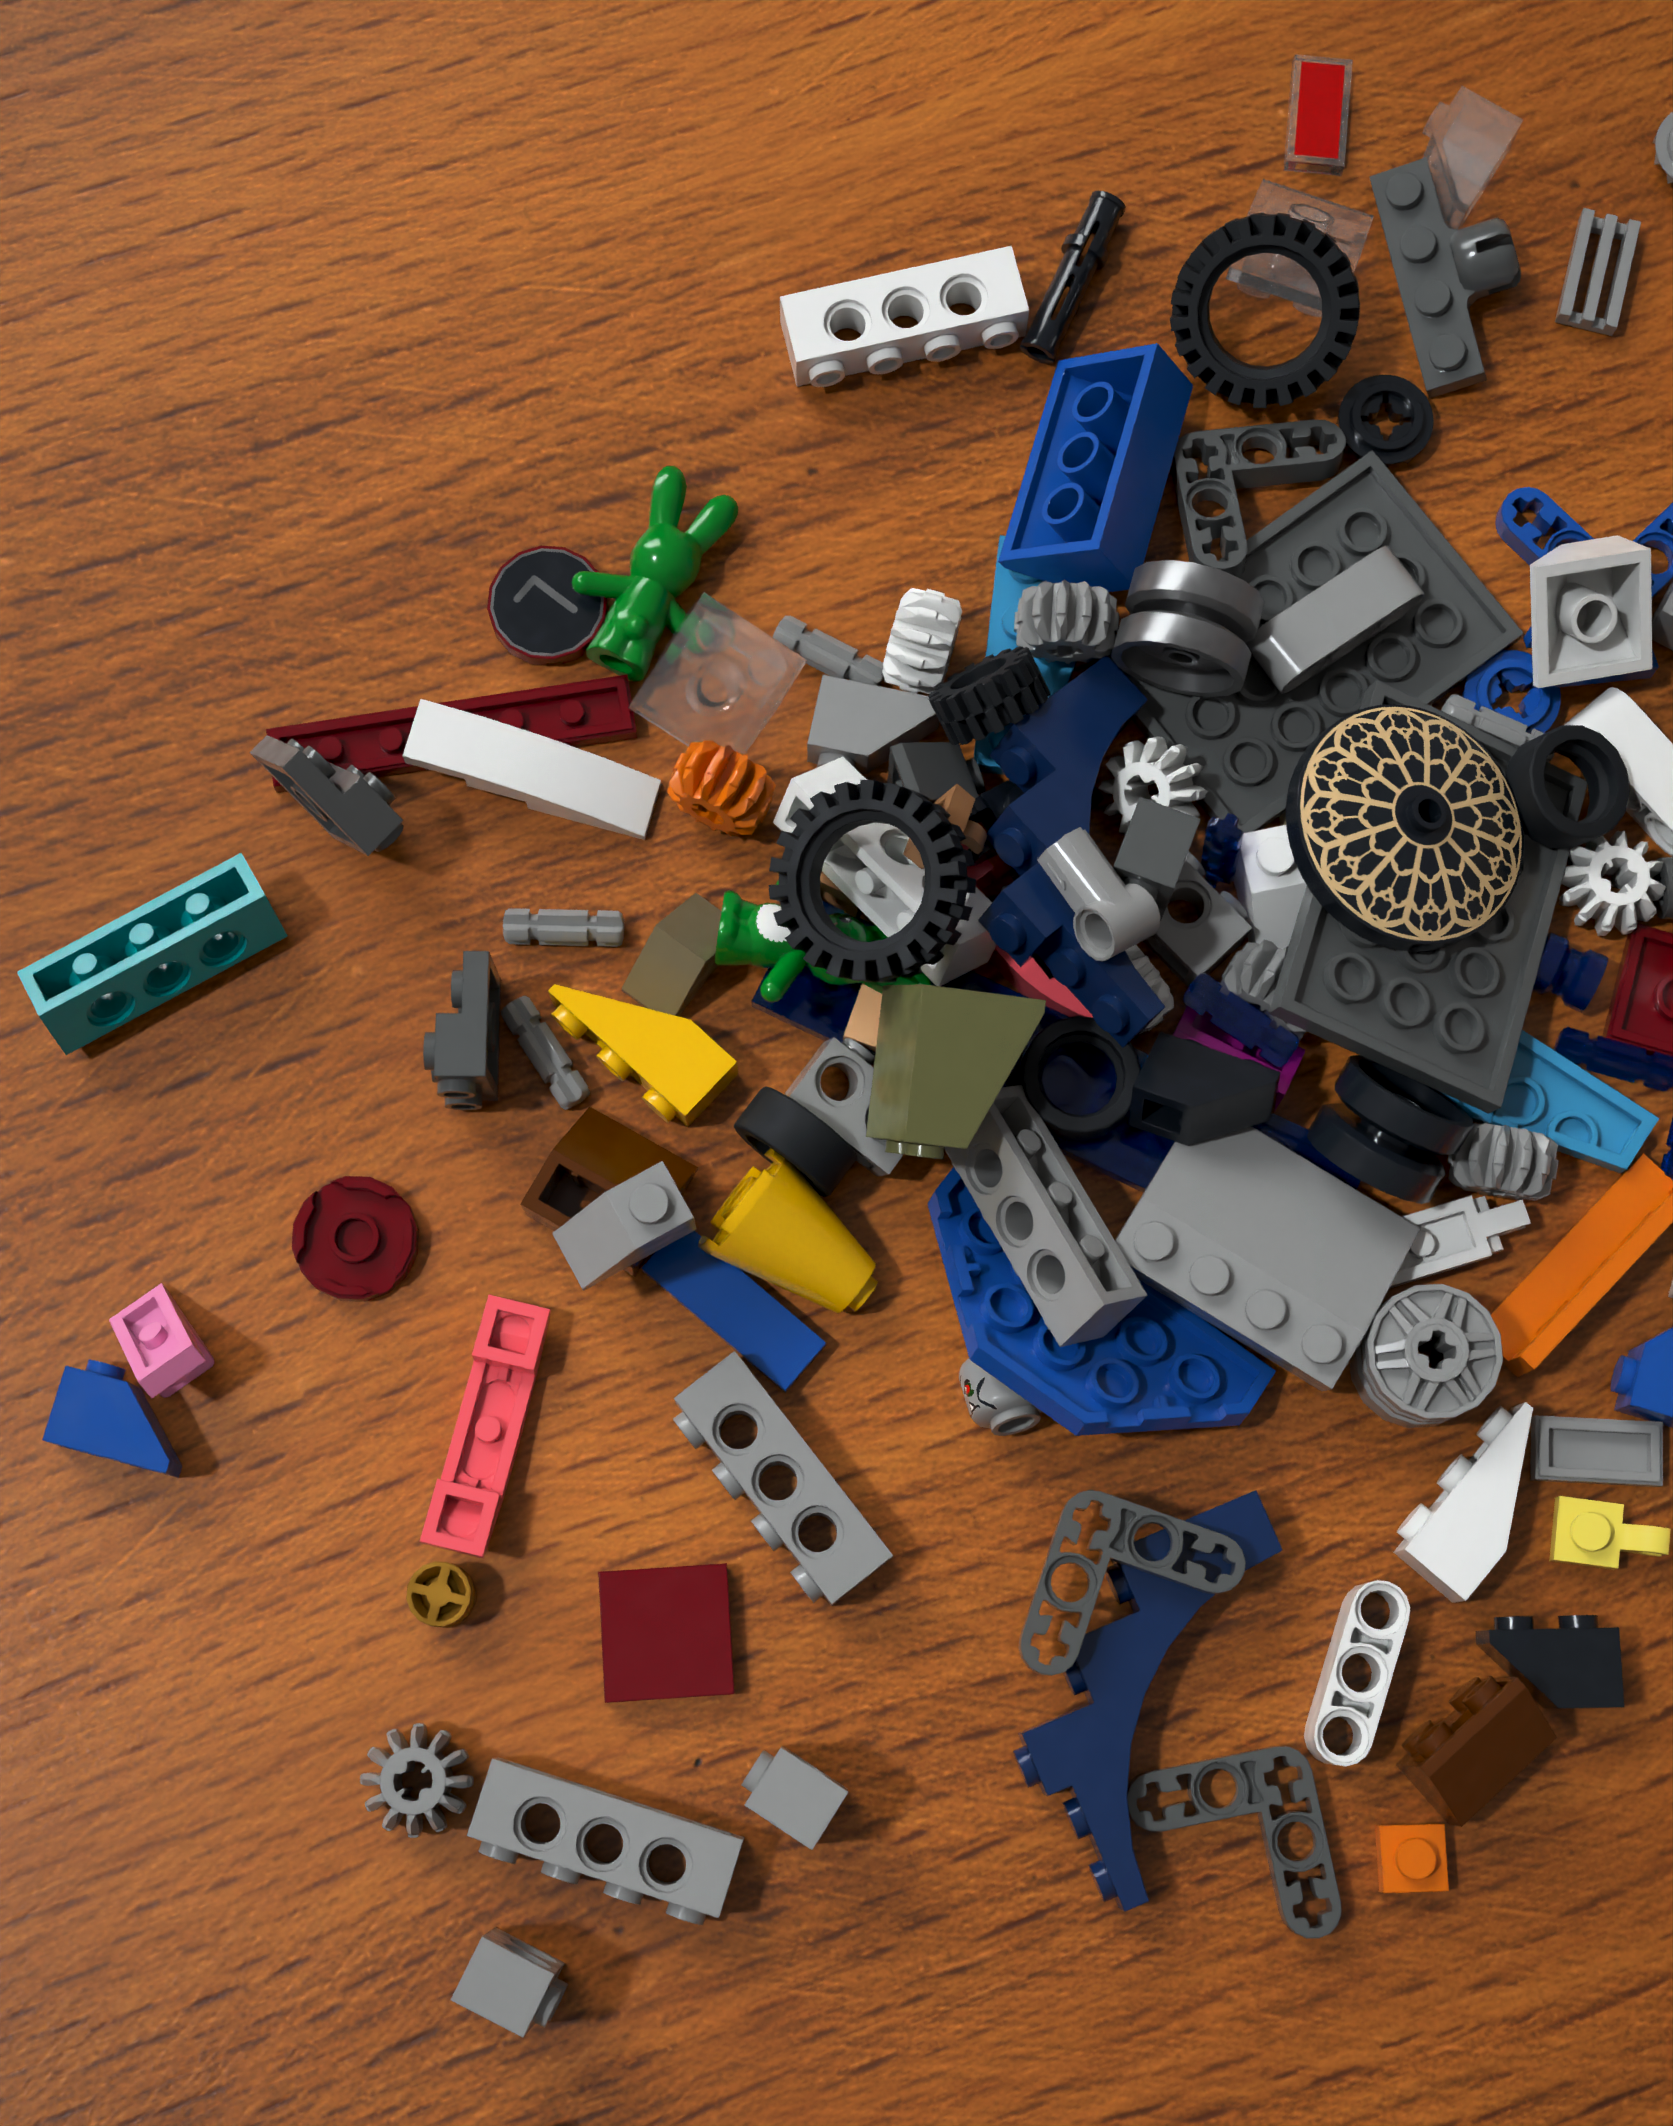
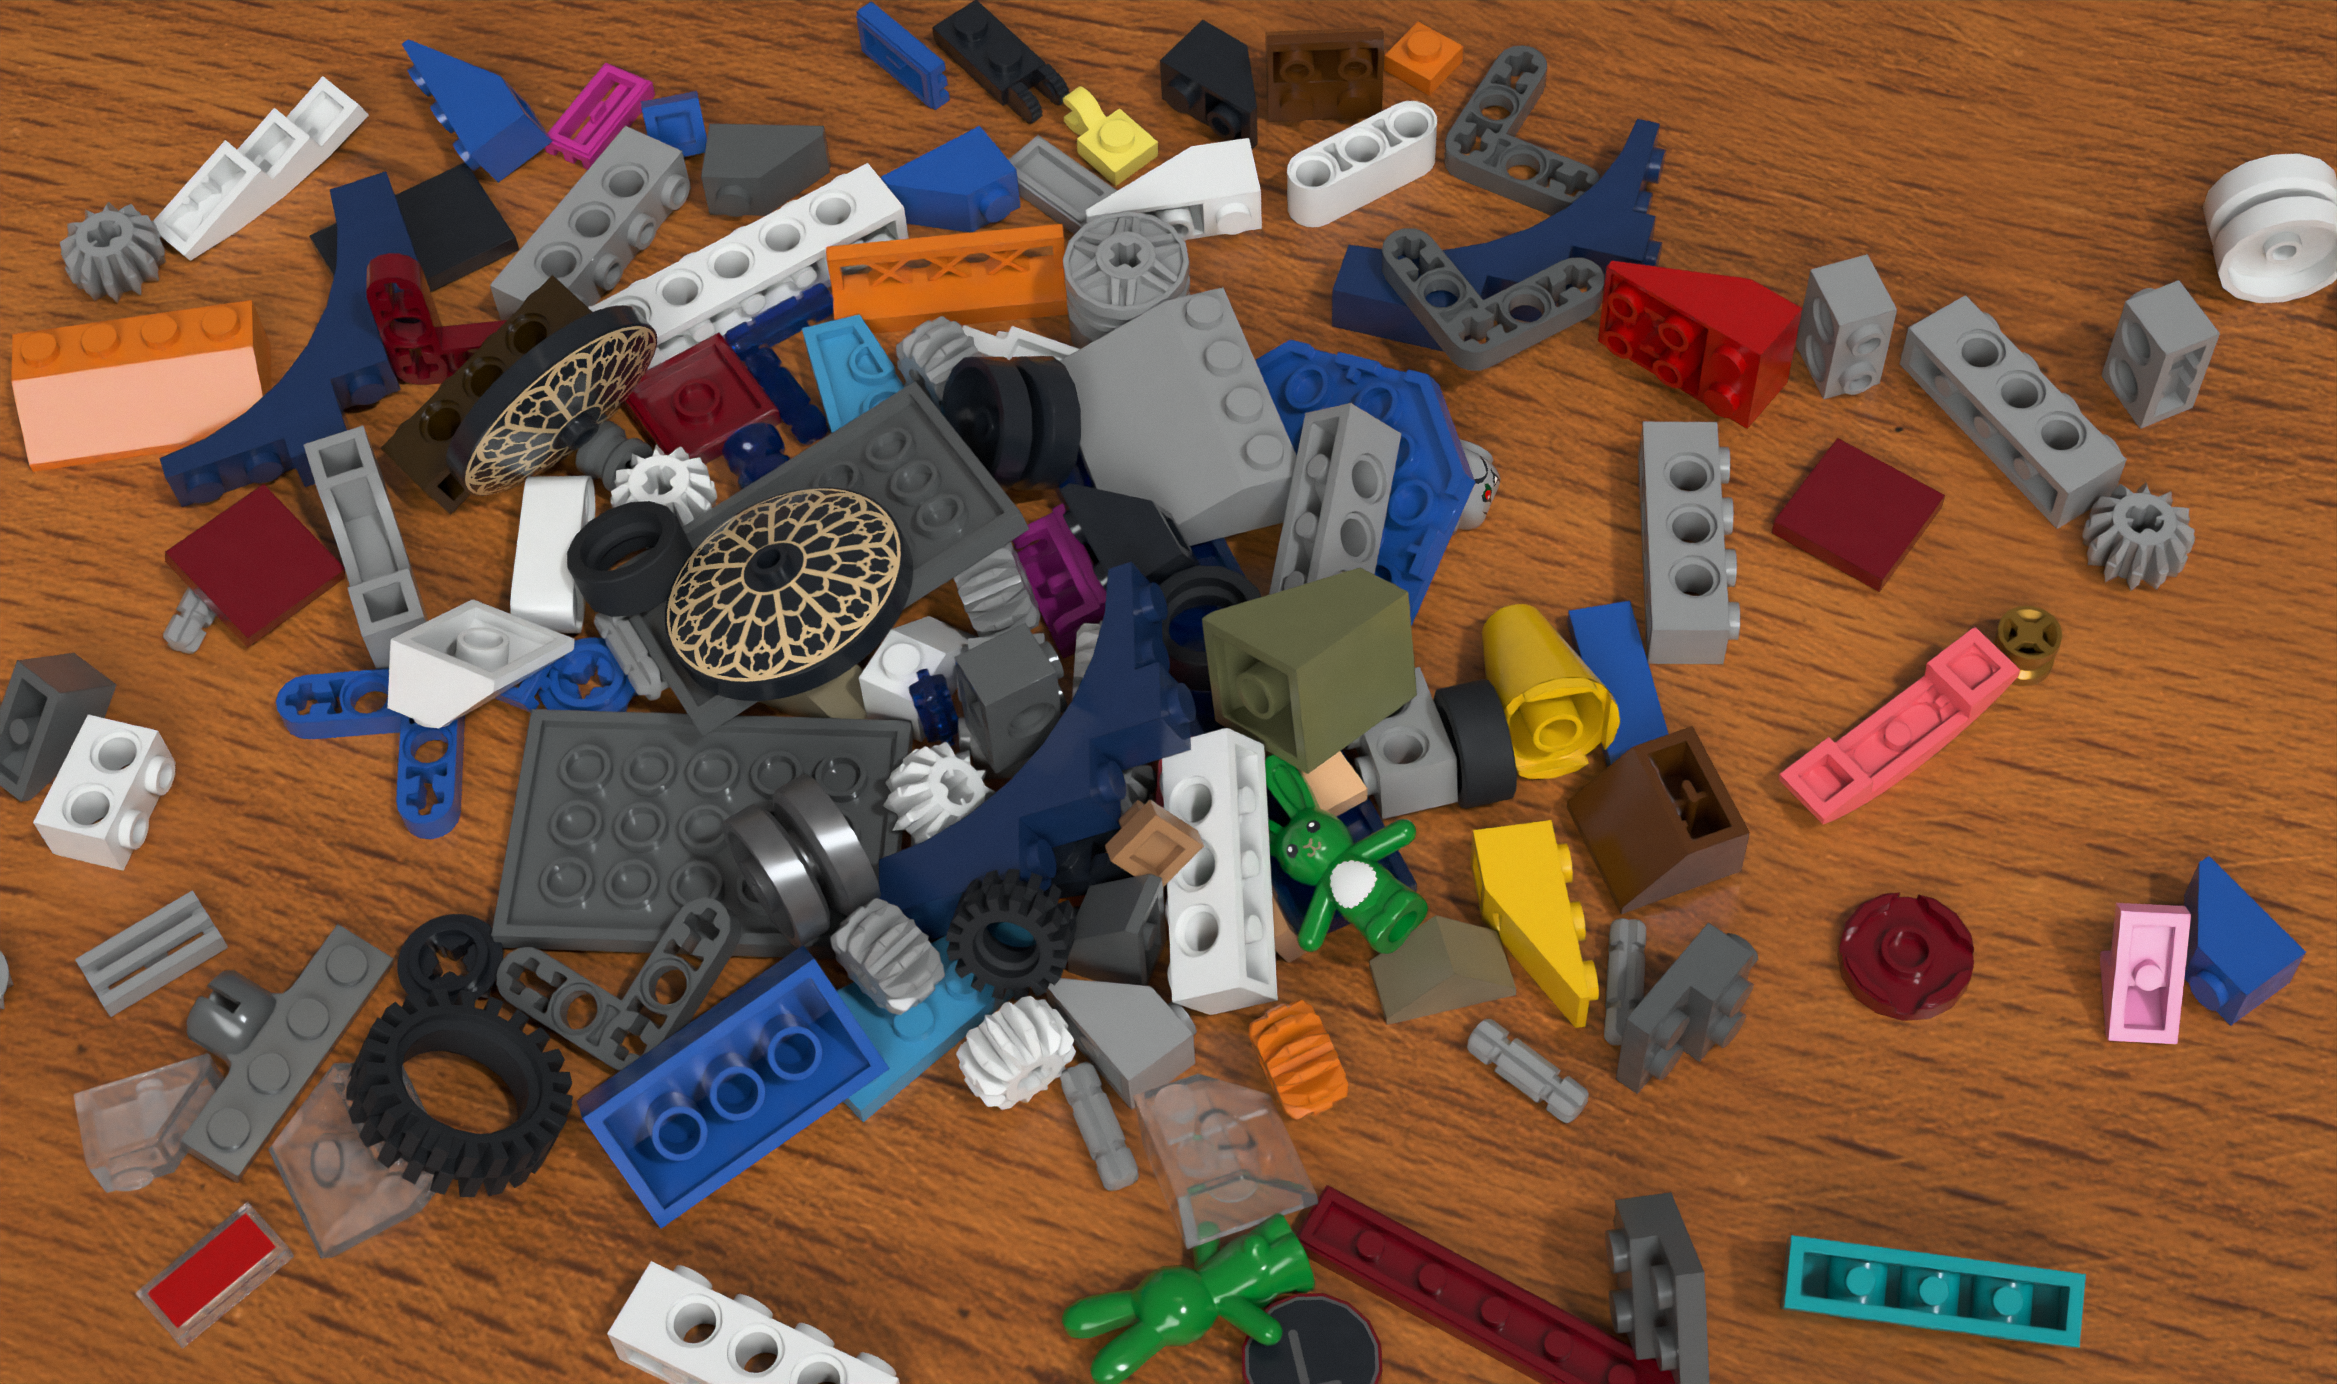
camera: 135 degrees left, 20 degrees down
(532, 769) = (1453, 1212): white slope -> none
(625, 1226) = (1675, 735): light grey slope -> none
(802, 866) = (1216, 870): black tyre -> none
(890, 1696) = (1702, 334): none -> red slope
(1098, 220) = (568, 1293): black pin -> none
(1106, 910) = (1089, 647): light grey piece -> none
(1240, 1020) = (1044, 579): clear blue axle -> none
(1335, 619) = (661, 805): light grey beam -> none

